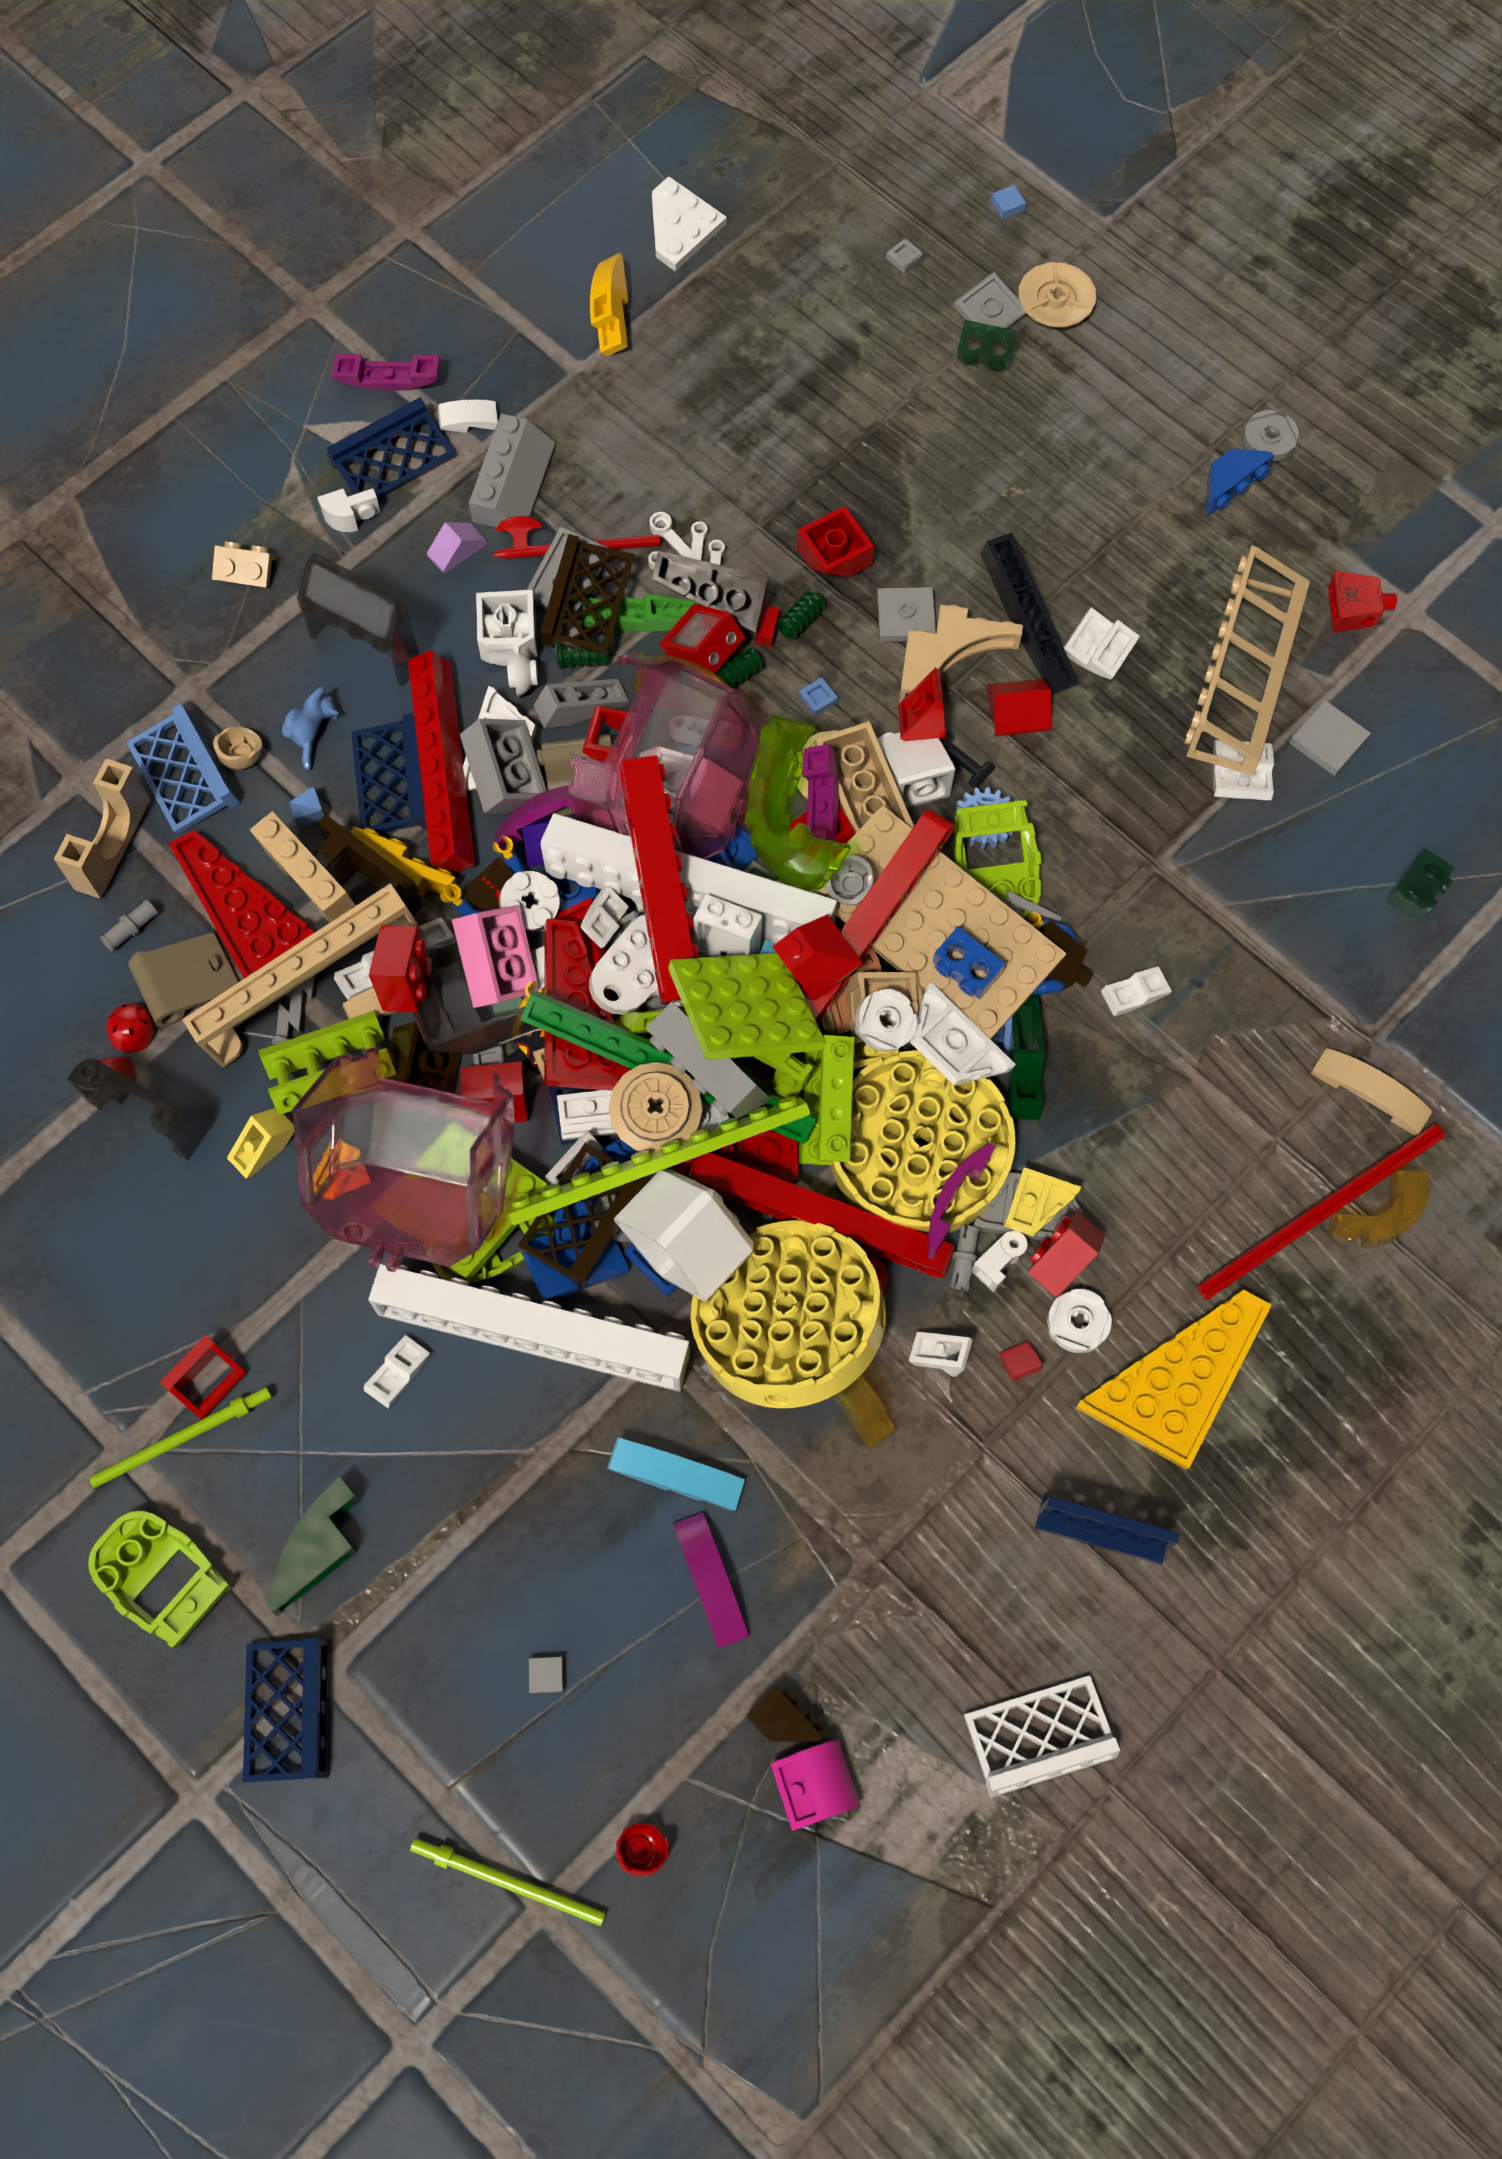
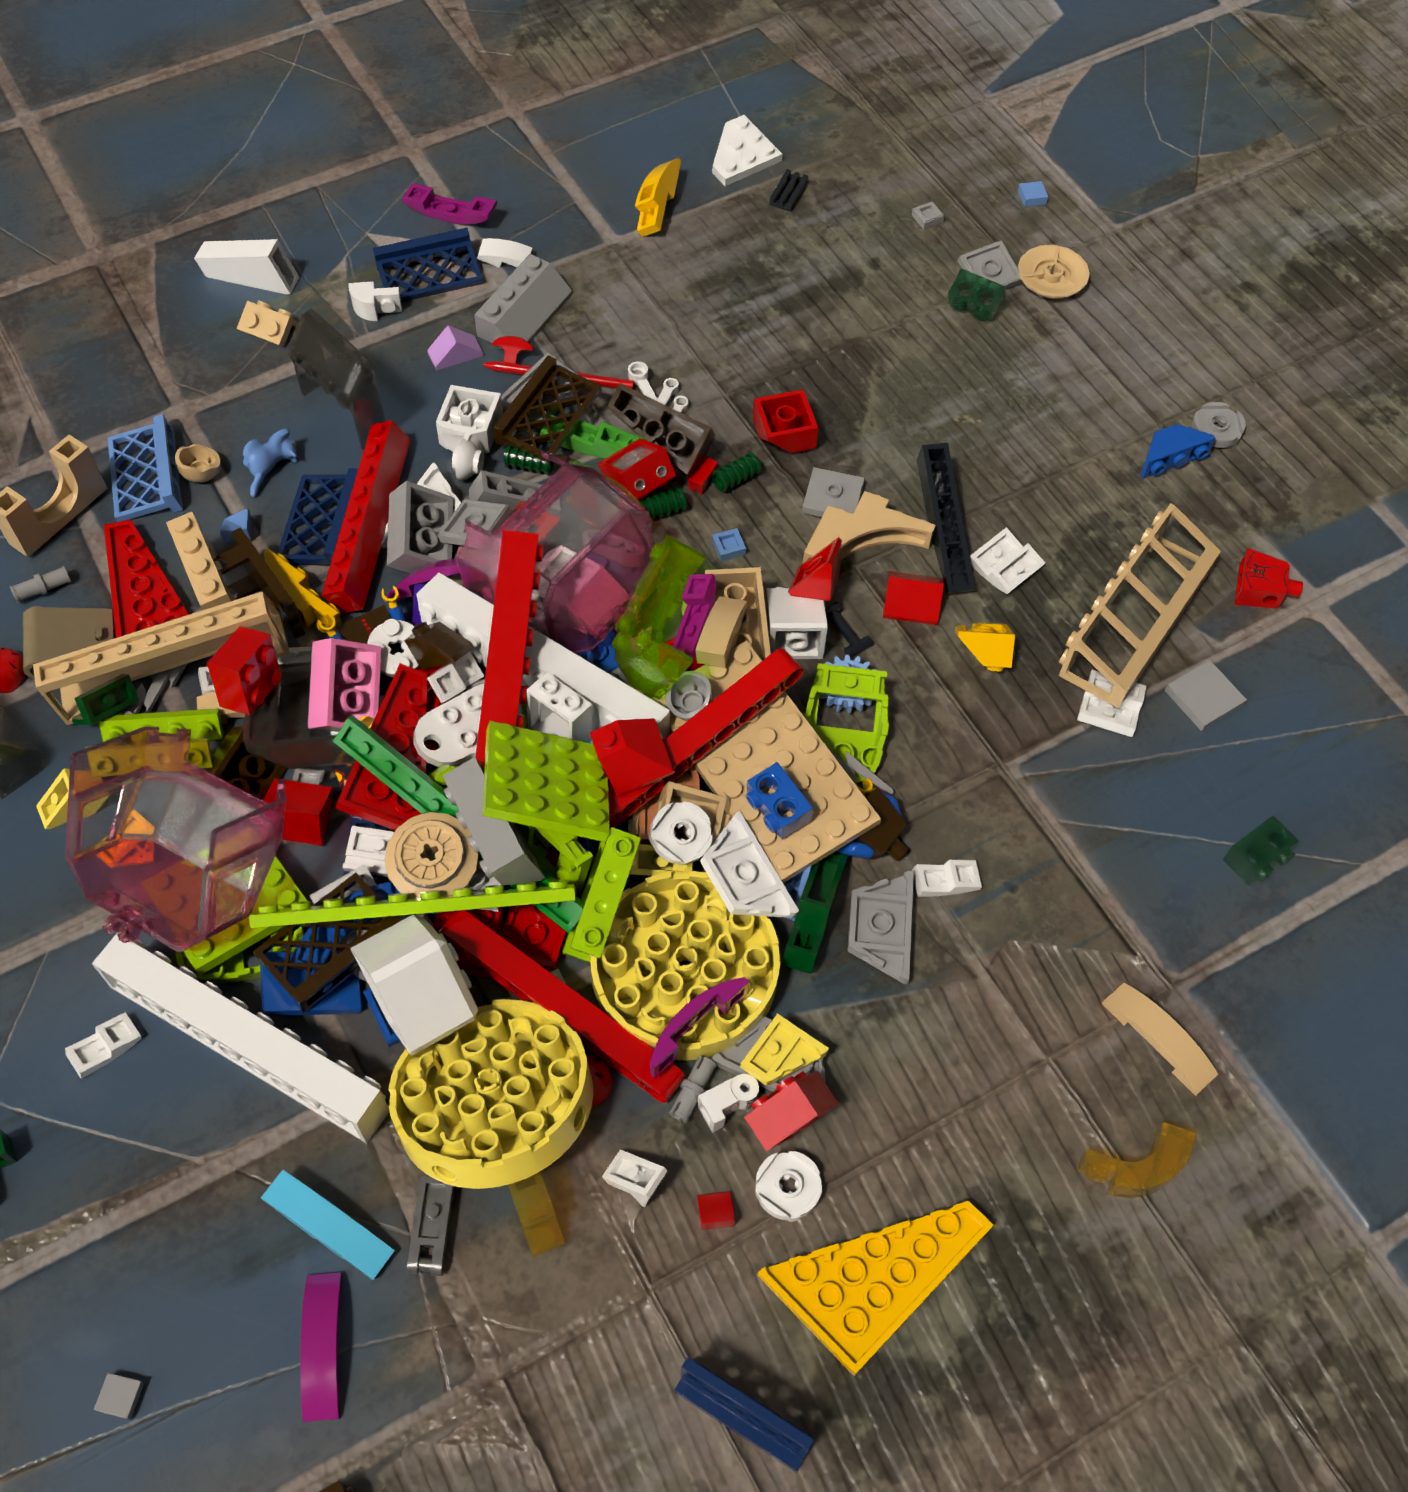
camera: 15 degrees right, 10 degrees down
(195, 498) = (248, 263): none -> white slope
(258, 1035) = (105, 700): none -> dark green panel
(557, 741) = (483, 514): none -> light grey plate
(576, 889) = (436, 645): none -> dark brown slope
(749, 244) = (780, 187): none -> black tile
(769, 1448) = (430, 1226): none -> flat silver plate
(855, 802) = (720, 632): none -> tan slope
(1091, 1054) = (882, 925): none -> light grey wing
(1110, 738) = (989, 644): none -> yellow slope
(1320, 1212) = (1072, 1144): red axle -> none

